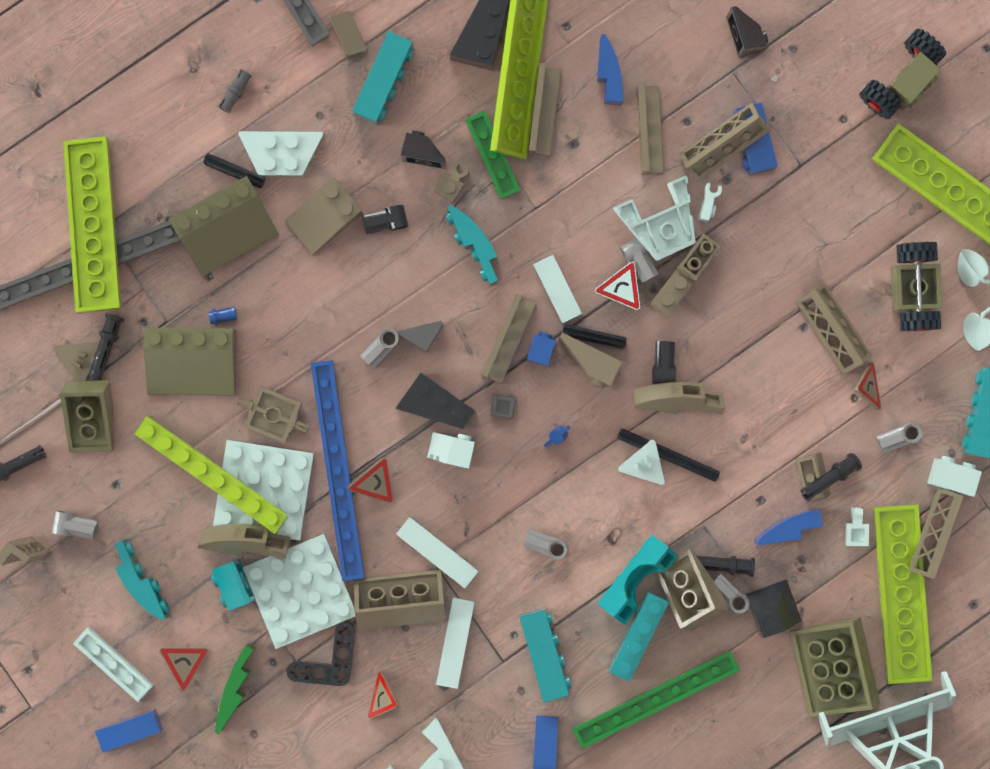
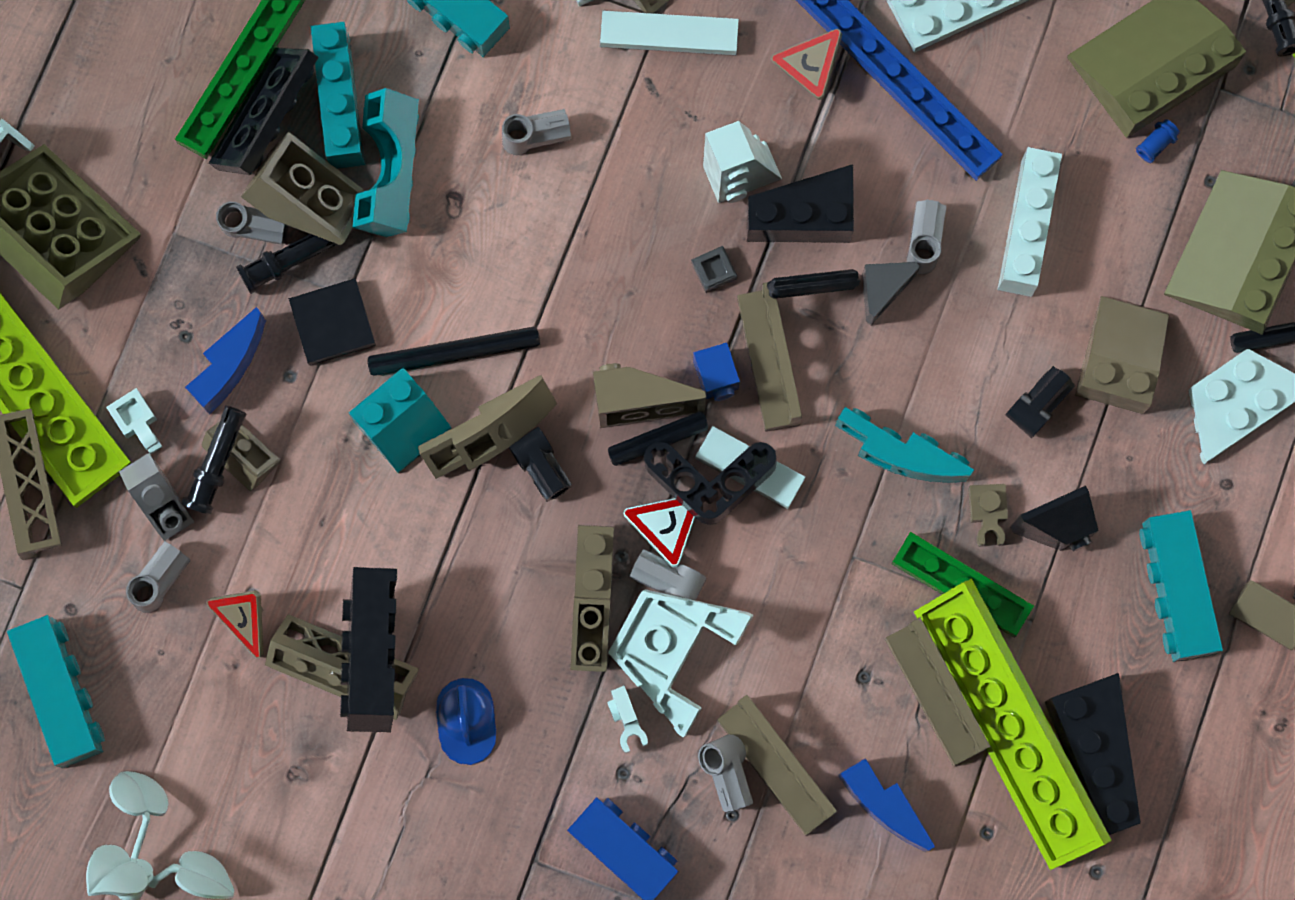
camera: 145 degrees right, 10 degrees down
(273, 414) = (1001, 61): dark tan plate -> none
(322, 317) = (1029, 222): none -> light aqua brick
(459, 360) = (813, 283): none -> black axle
(557, 435) = (617, 277): blue piece -> none
(591, 290) = (705, 490): none -> black beam
(645, 464) = (476, 317): light aqua piece -> none
(676, 148) = (723, 761): none -> light grey piece
(684, 652) = (264, 110): none -> black plate
(721, 435) = (399, 419): none -> teal slope
(721, 514) = (332, 322): none -> black tile
(725, 144) = (656, 808): dark tan fence -> none
(773, 608) = (181, 245): black slope -> none
(788, 259) = (466, 721): none -> blue piece
(819, 319) = (369, 650): none -> black wedge
(873, 481) = (156, 496): none -> light grey slope
(917, 286) = (261, 793): brick -> none
(954, 477) = (46, 575): light aqua brick -> none

